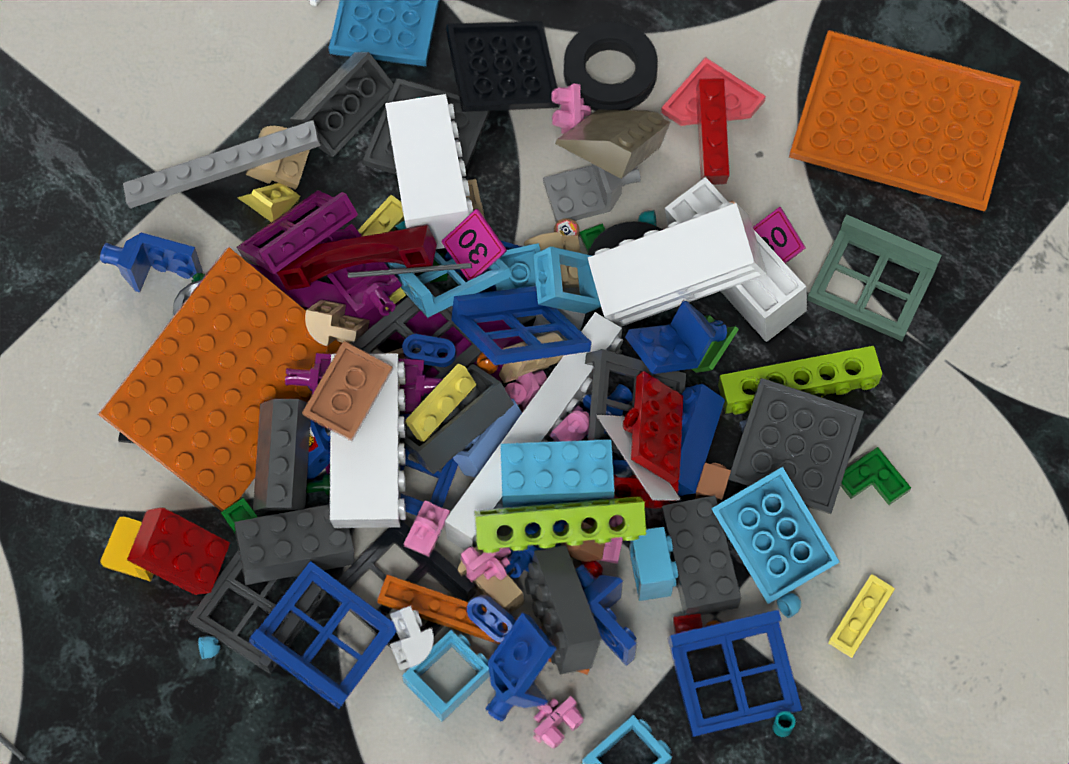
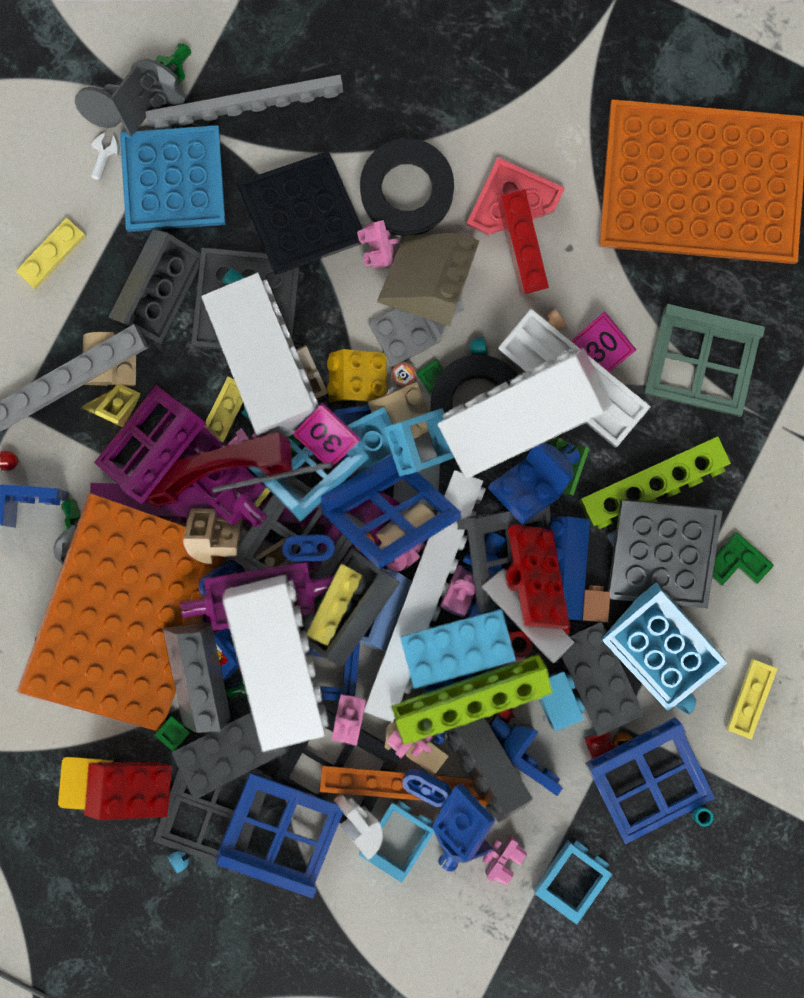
camera: 15 degrees left, 20 degrees up
(152, 226) = (8, 460): none -> red hinge
(250, 57) = (51, 253): none -> light yellow plate
(347, 391) = (248, 634): nougat plate -> none
(519, 217) = (356, 375): none -> yellow bracket

